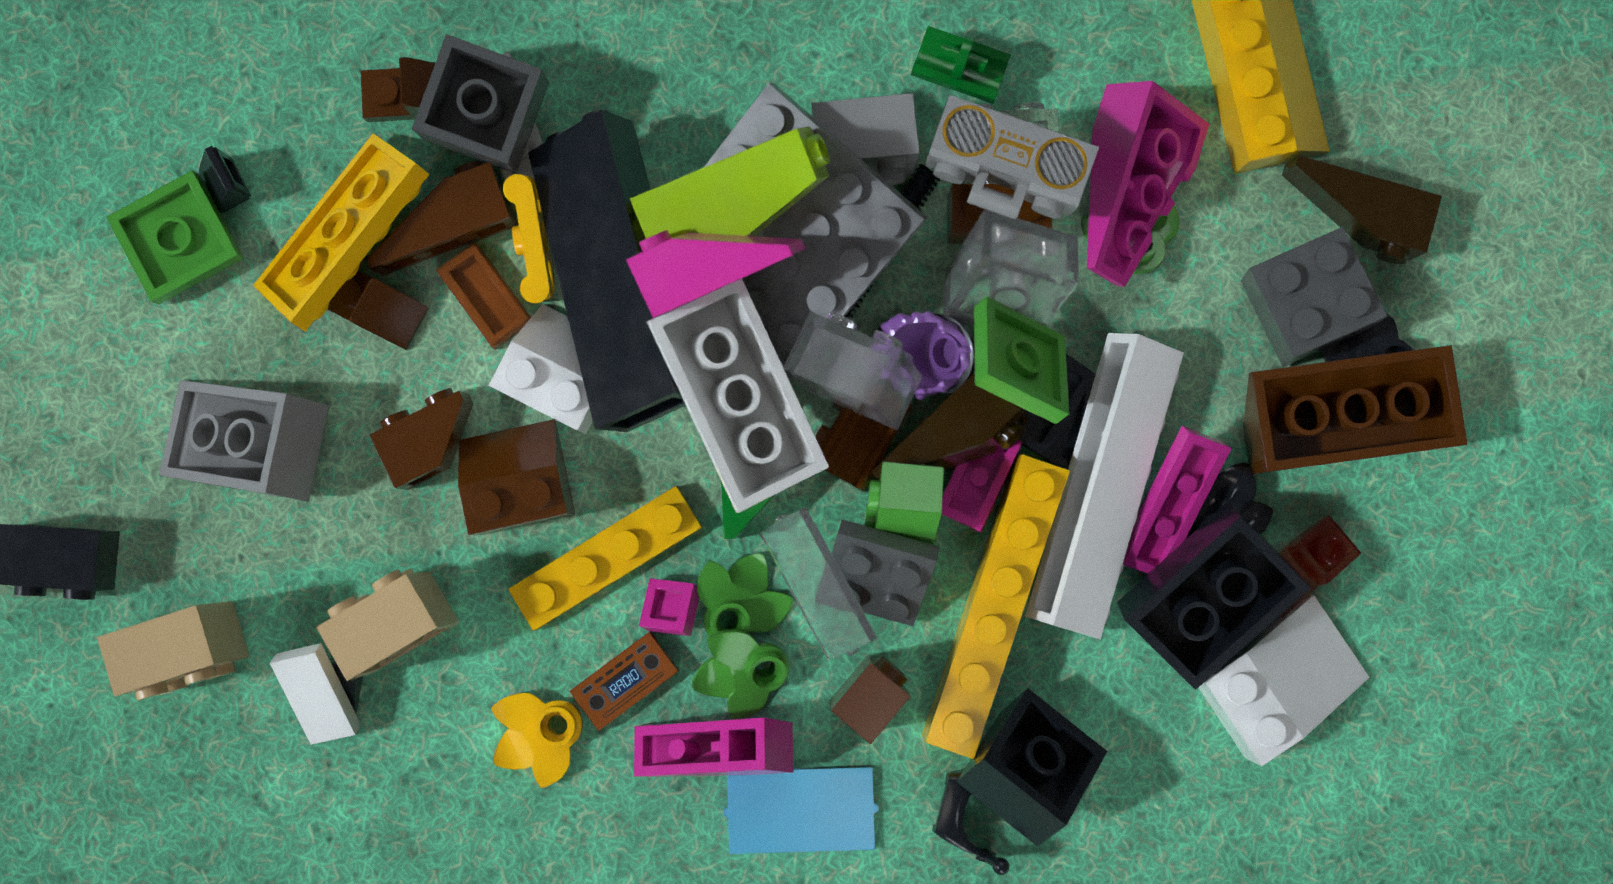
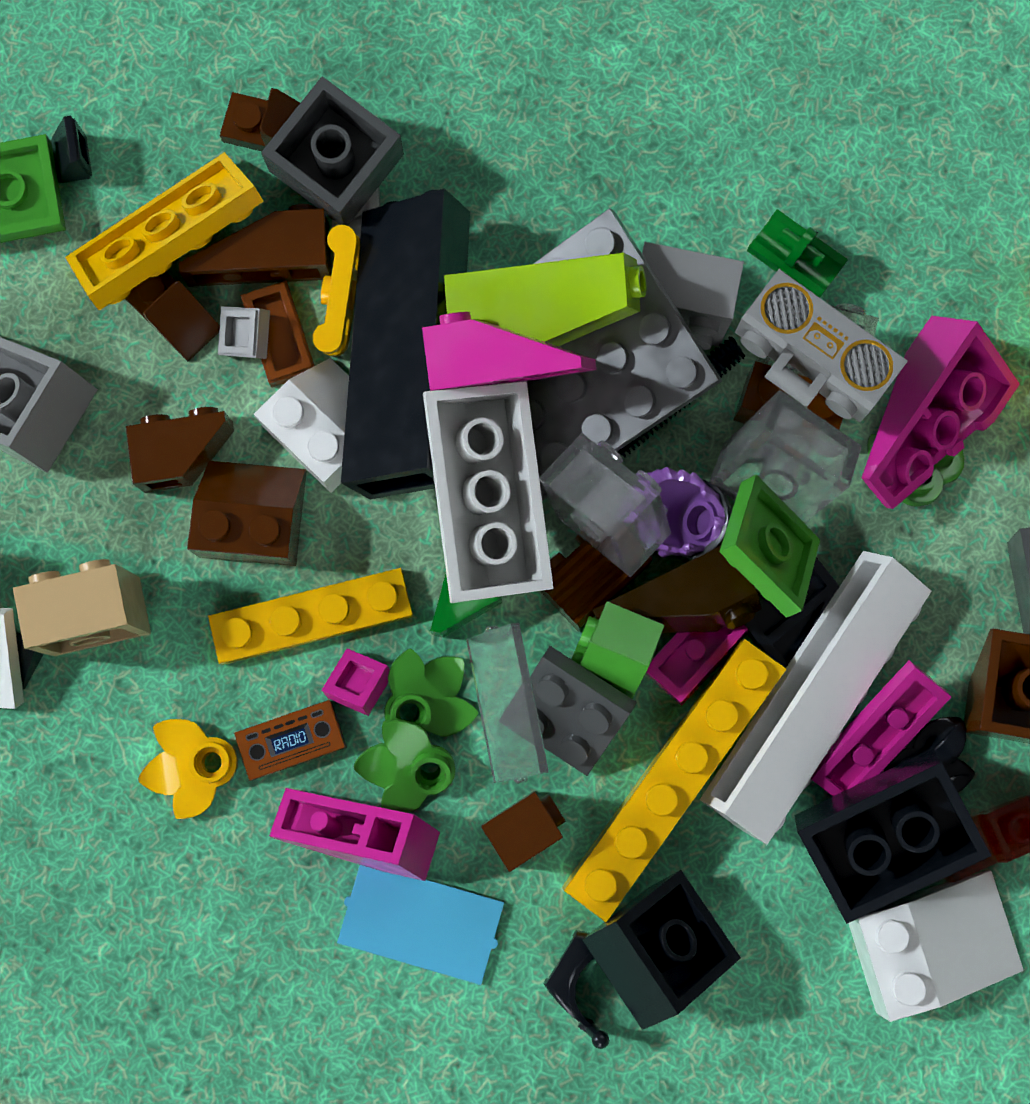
camera: 15 degrees right, 5 degrees down
(451, 306) = (244, 332): none -> light grey tile

